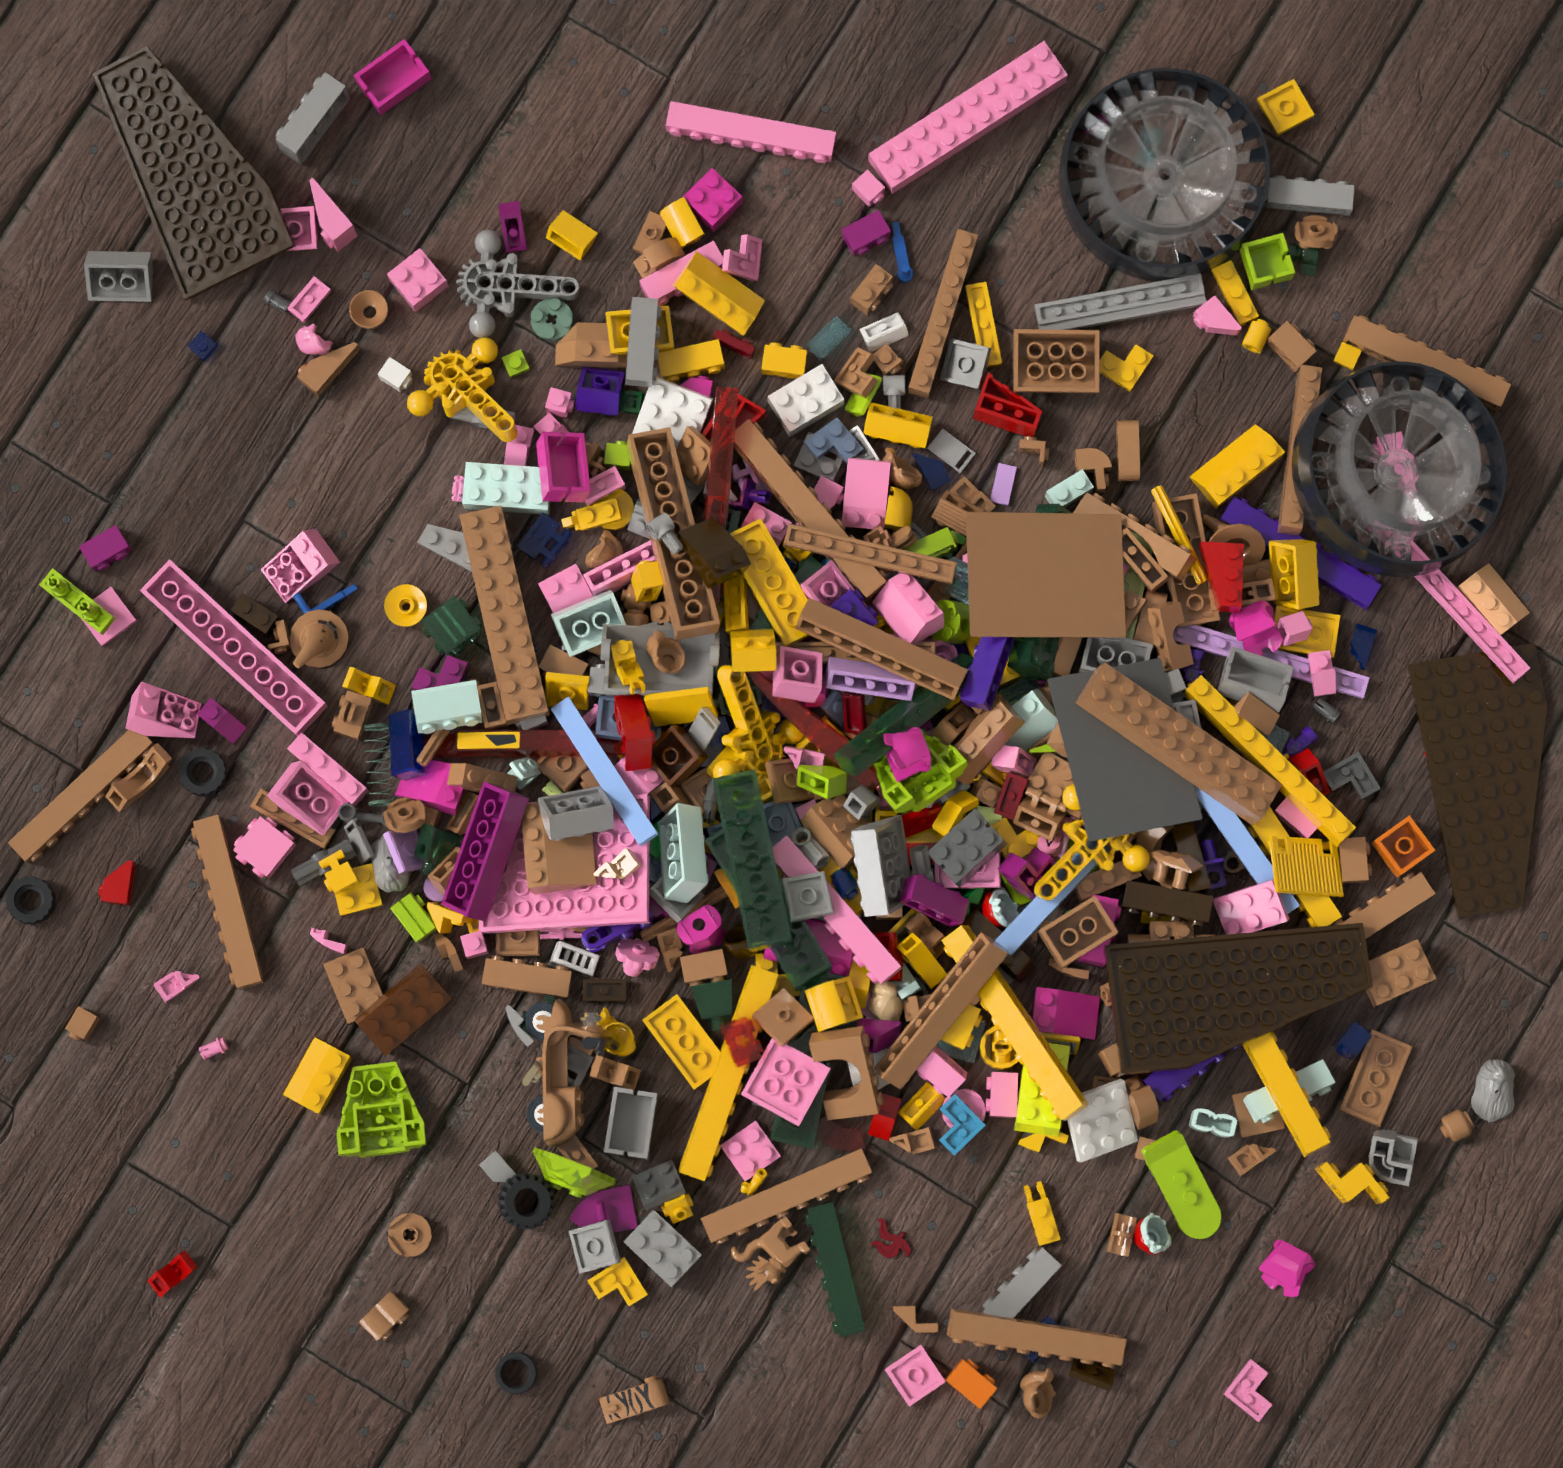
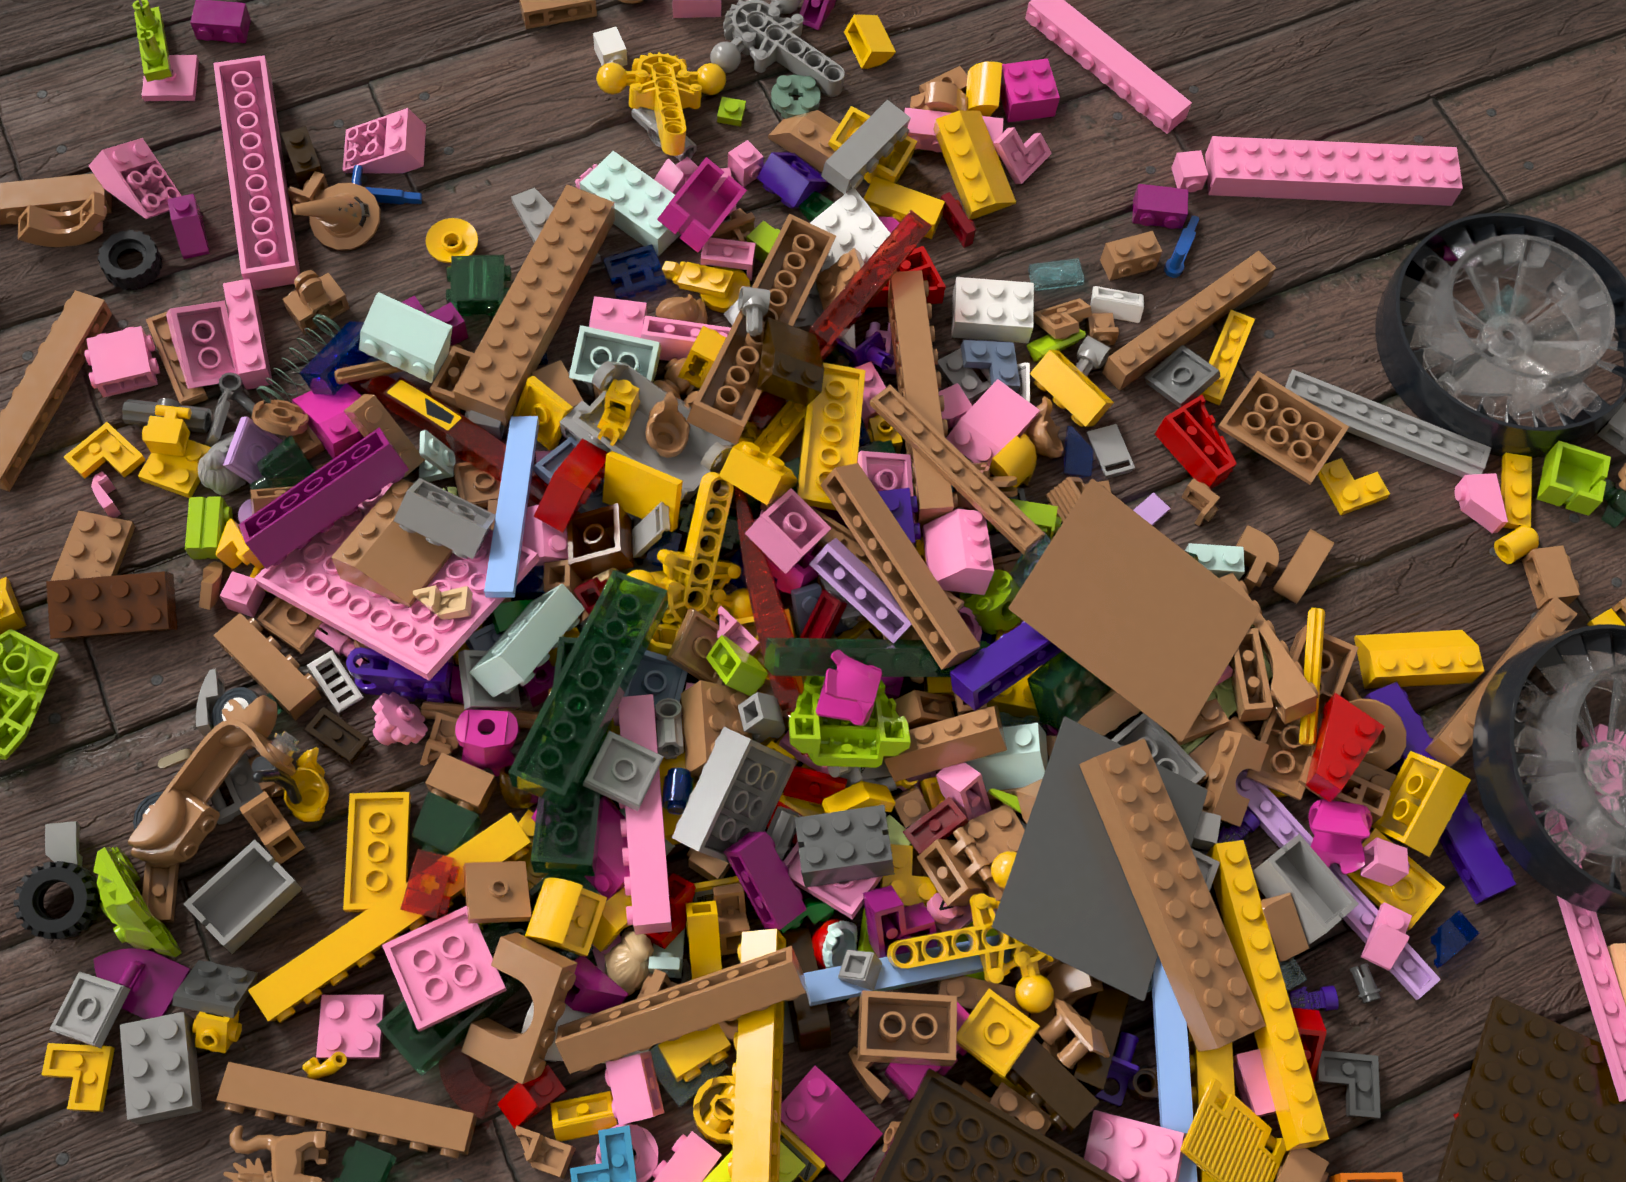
camera: 25 degrees right, 15 degrees down
(303, 909) = (104, 446): none -> yellow plate
(369, 686) = (351, 281): yellow slope -> none
(700, 786) = (590, 591): none -> dark red leg
(784, 361) = (994, 261): yellow brick -> none
(1026, 914) = (860, 969): none -> light grey slope
(1129, 898) = (996, 1033): none -> yellow tile

